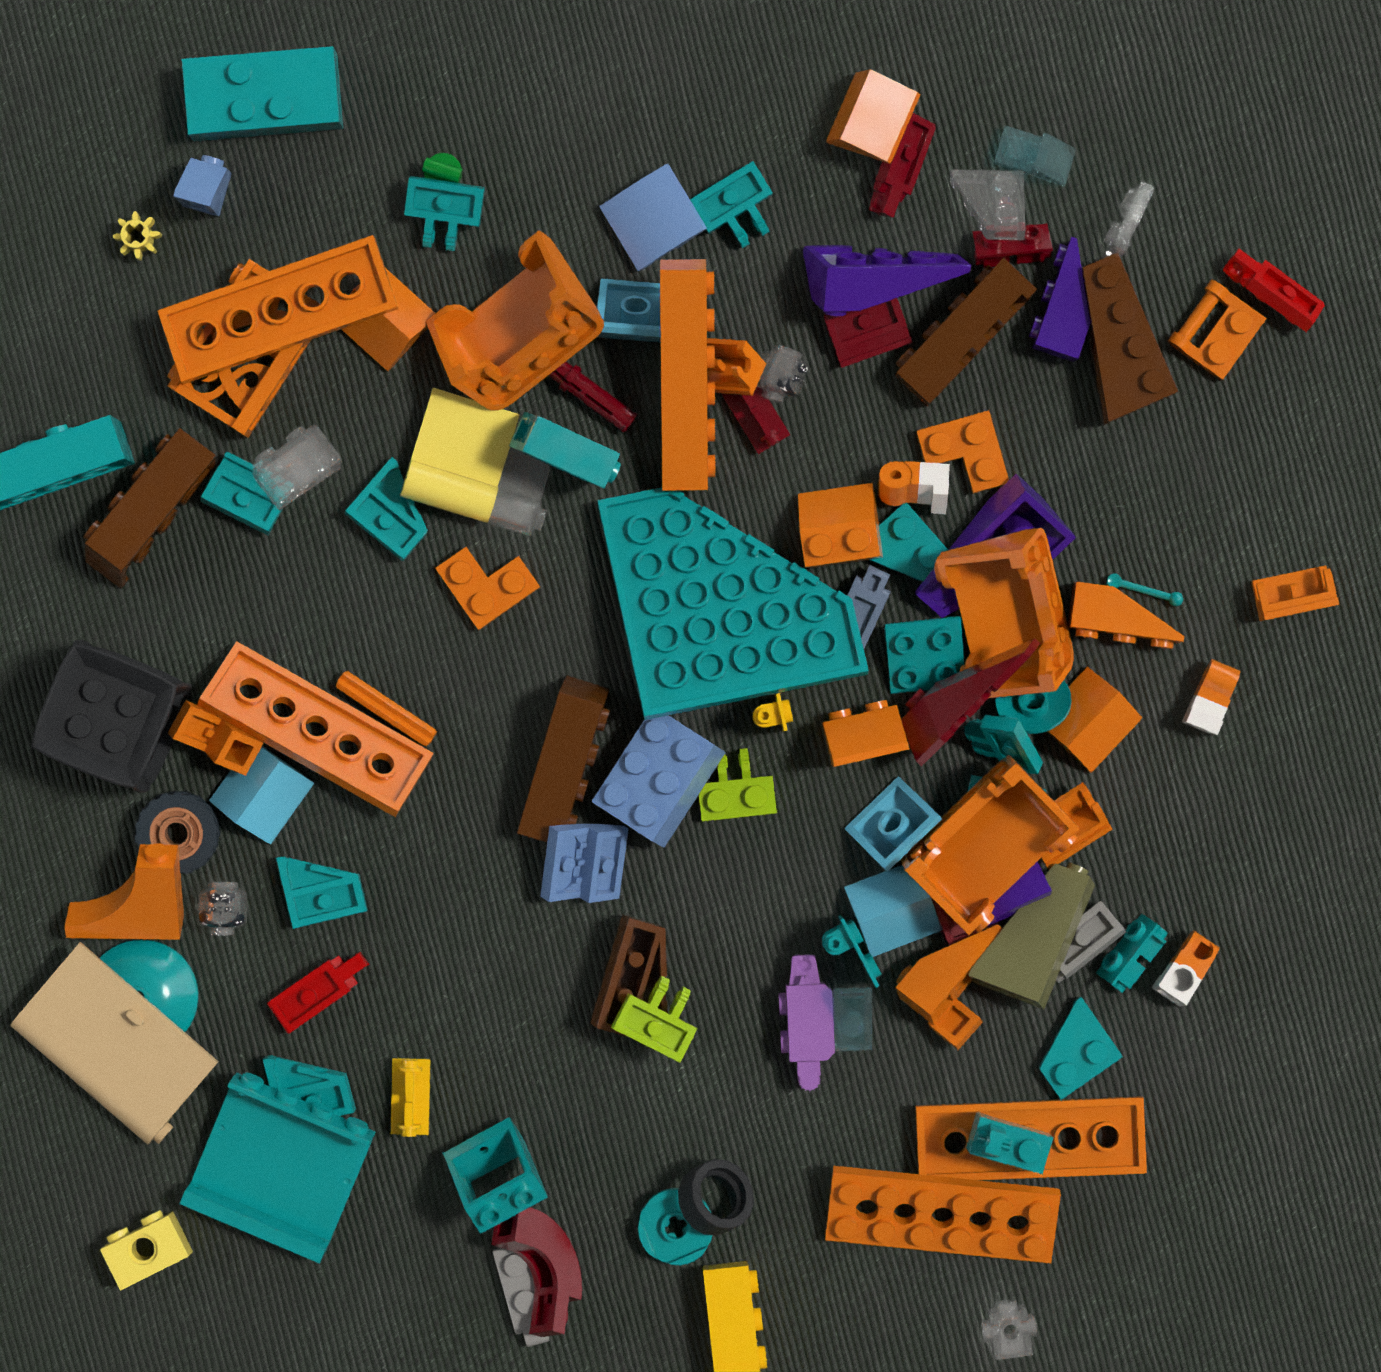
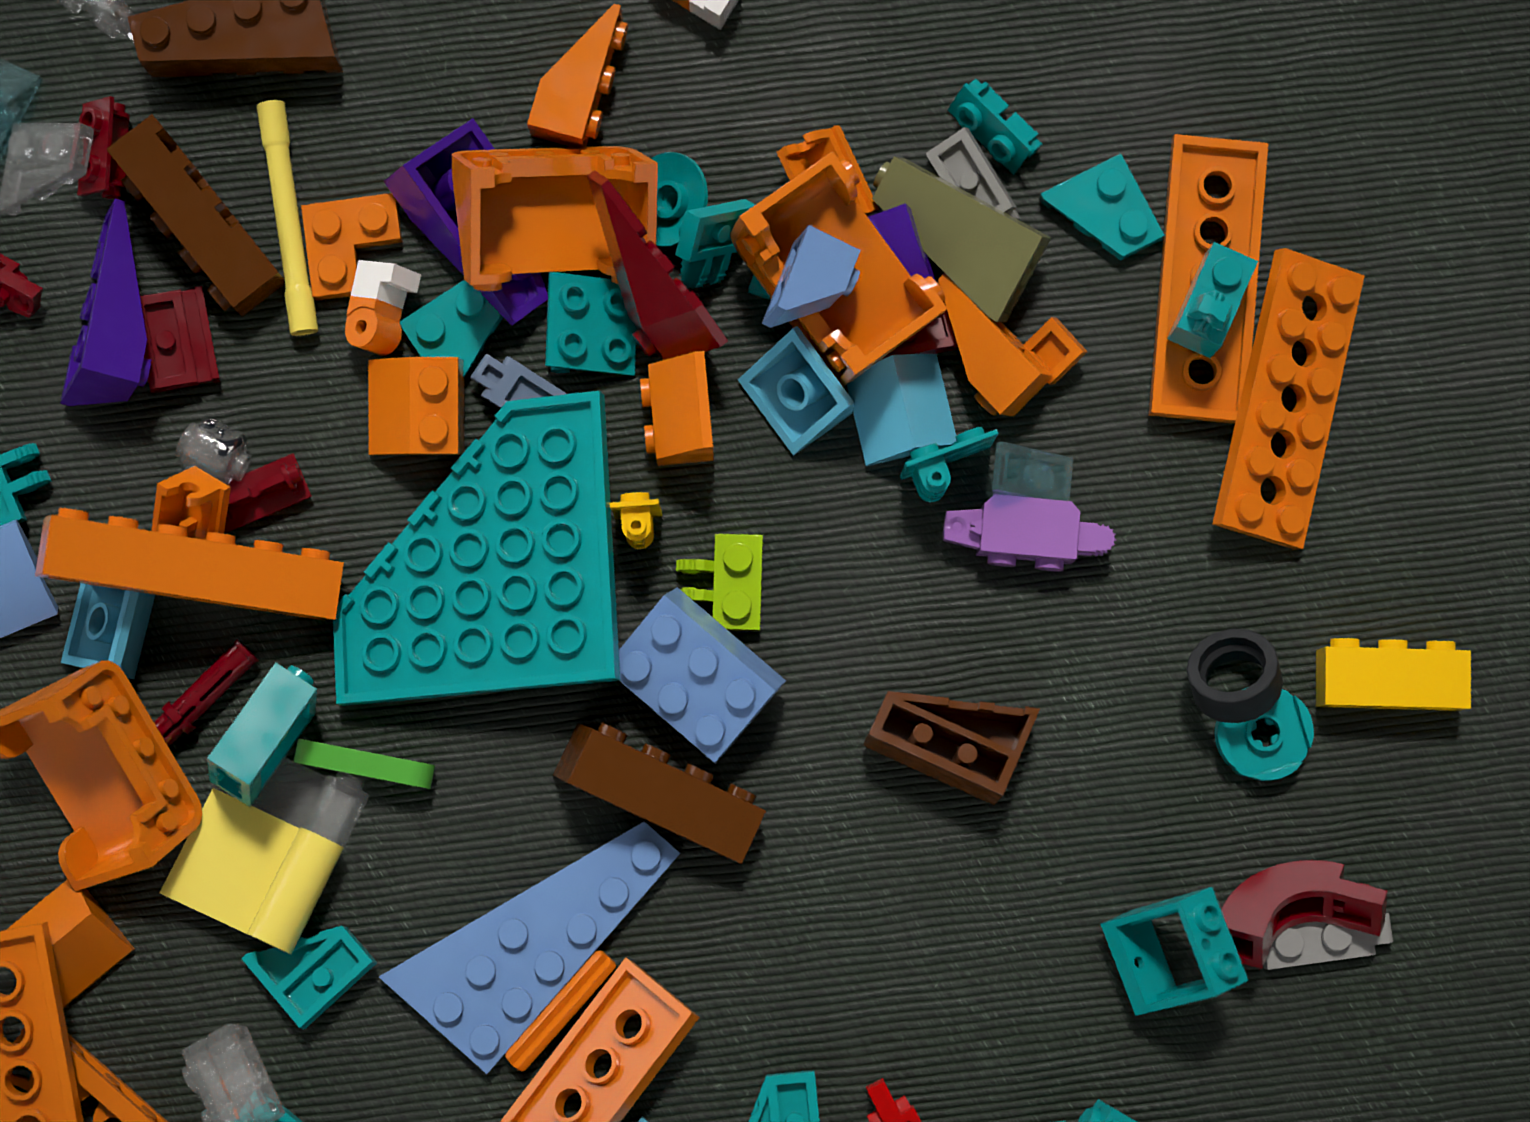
camera: 85 degrees left, 5 degrees down
(410, 1097) = (1058, 1047): yellow hinge -> none
(418, 665) = (510, 963): none -> medium blue wing
(485, 596) = (437, 864): orange plate -> none
(554, 528) = (364, 763): none -> bright green beam
(584, 862) = (790, 783): medium blue slope -> none
(654, 1026) = (1010, 721): lime hinge -> none
(980, 825) = (813, 277): none -> medium blue slope
(1013, 1343) = (1443, 335): clear brick -> none
(1036, 382) = (298, 293): none -> light yellow piece
(1066, 313) = (196, 93): dark purple slope -> none
(1096, 720) = (703, 126): orange slope -> none
(1174, 598) = (568, 15): teal hinge -> none
(1186, 969) = (1024, 61): leg -> none

